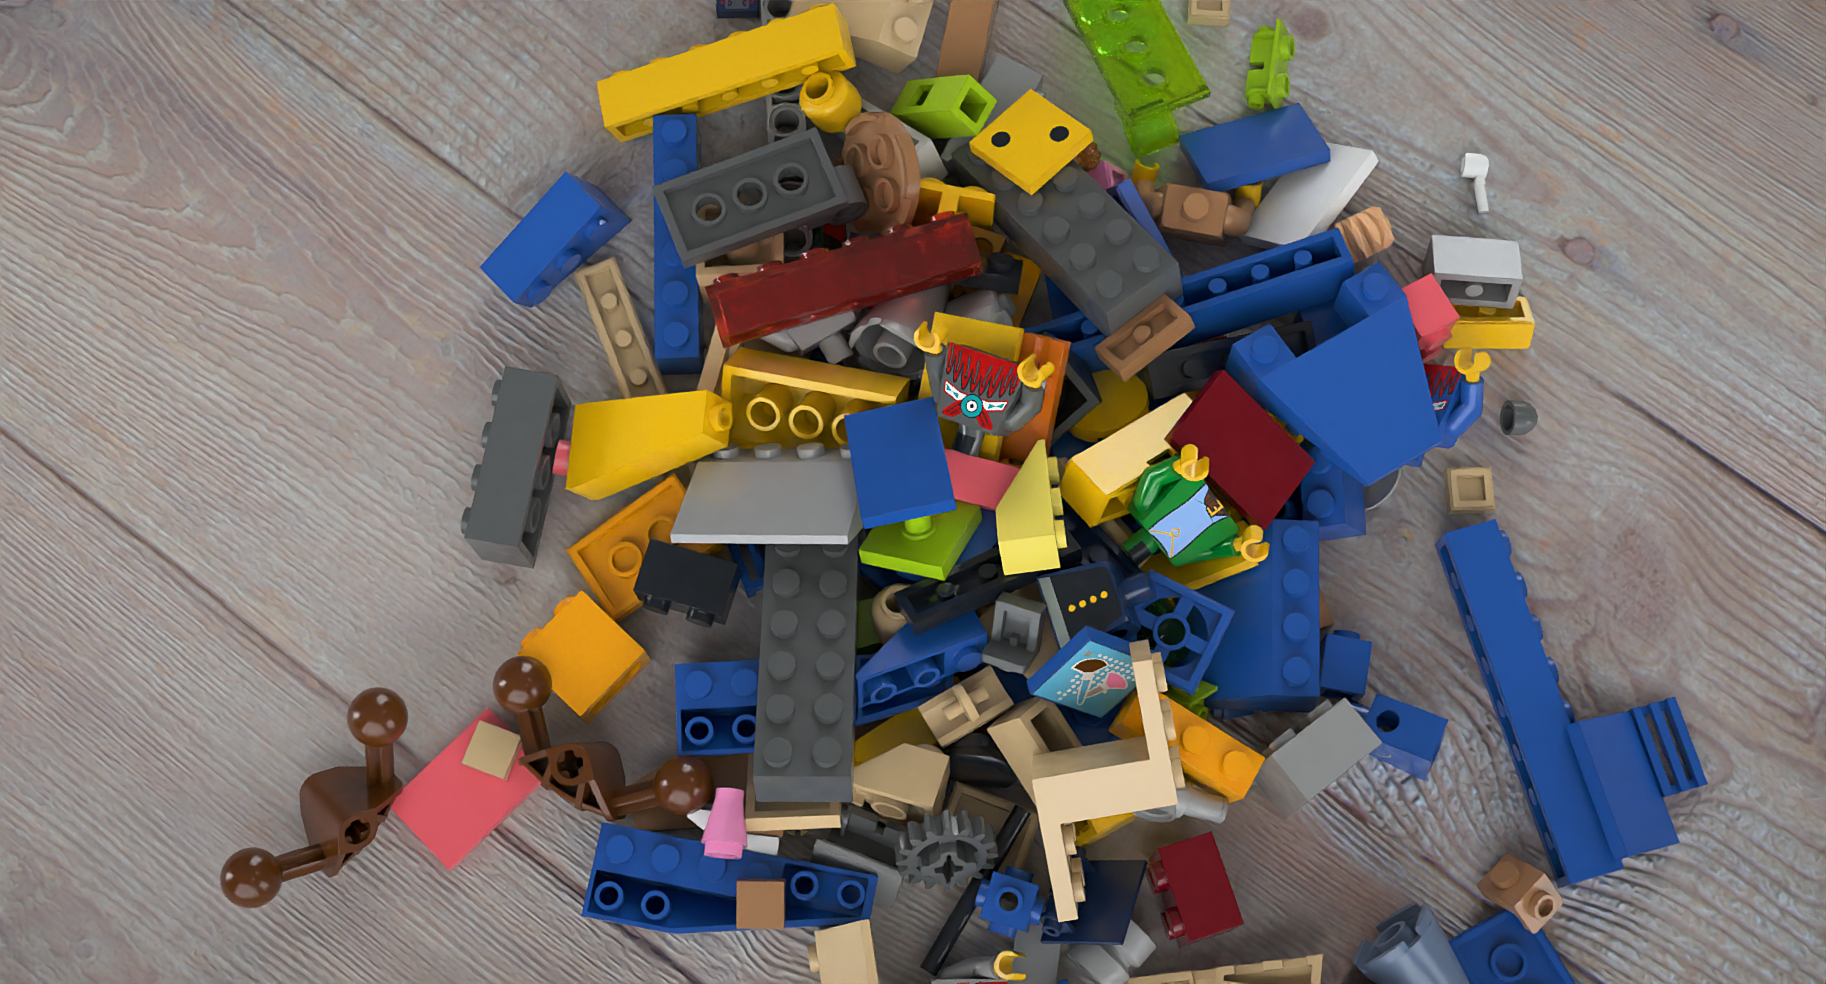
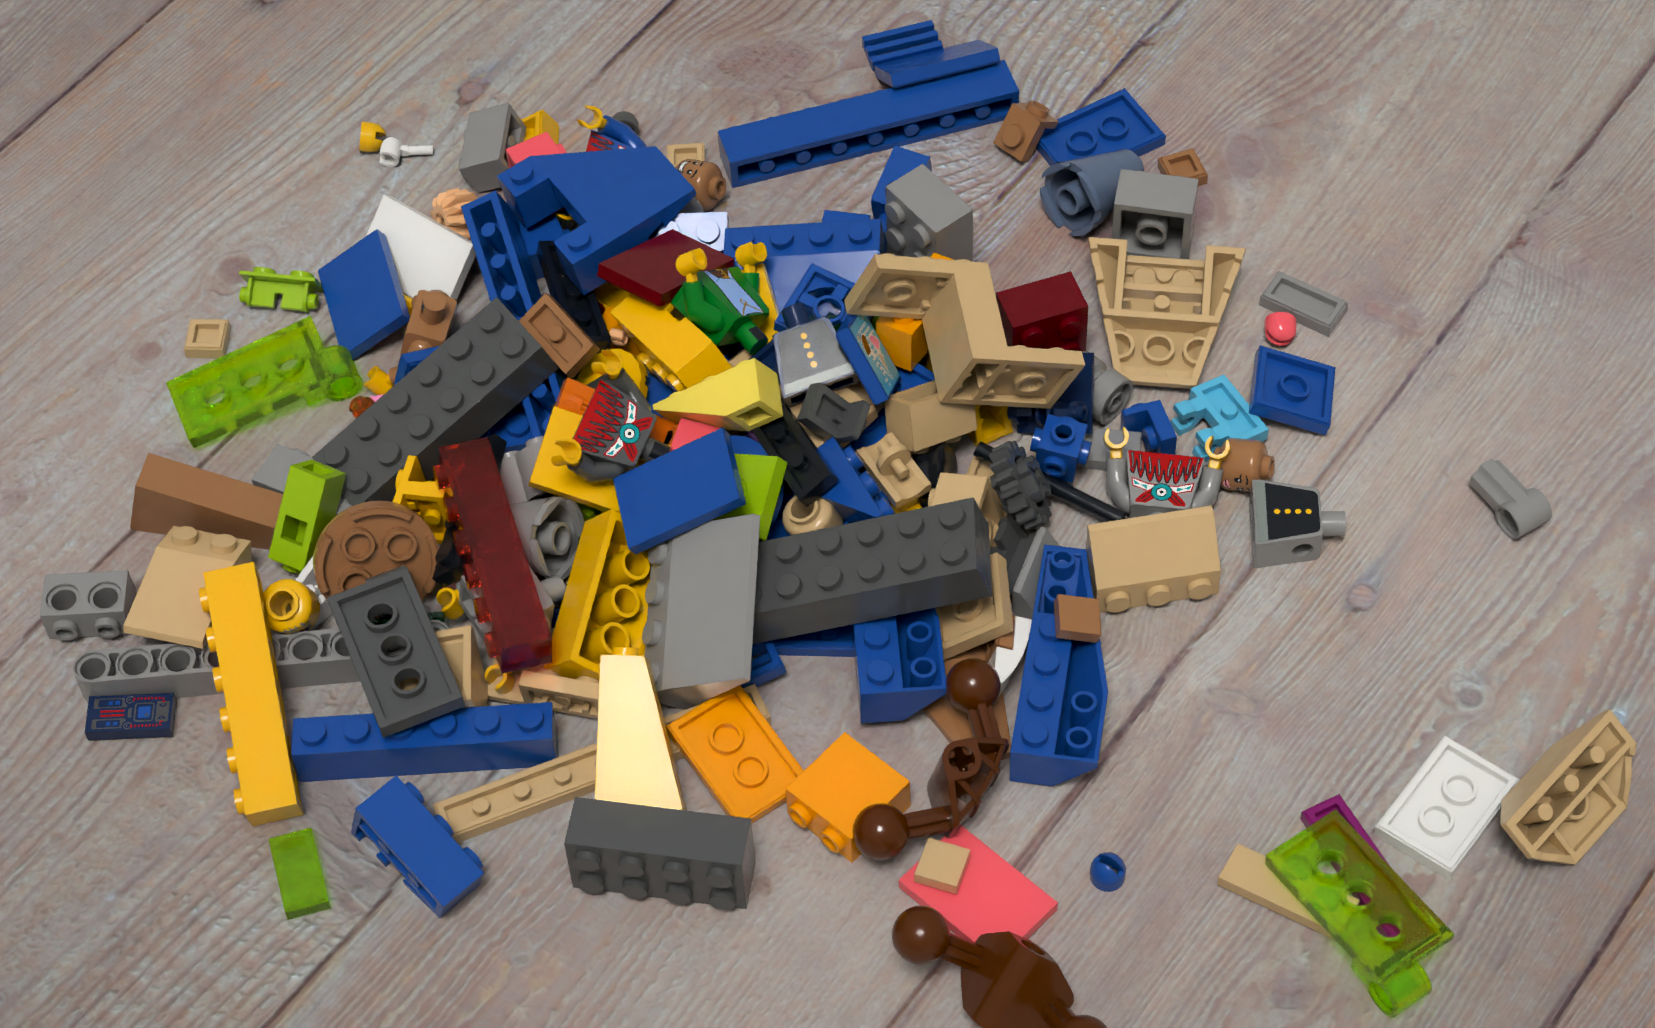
camera: 90 degrees left, 20 degrees down
(492, 931) = (1103, 876): none -> blue hinge
(552, 142) = (299, 873): none -> clear neon green tile
(687, 583) = (781, 690): black brick -> none
(726, 826) = (1010, 642): bright pink cone -> none
(1031, 141) = (357, 428): yellow tile -> none
(1423, 499) = (706, 180): none -> medium nougat head
(1495, 141) = (368, 136): none -> yellow hinge

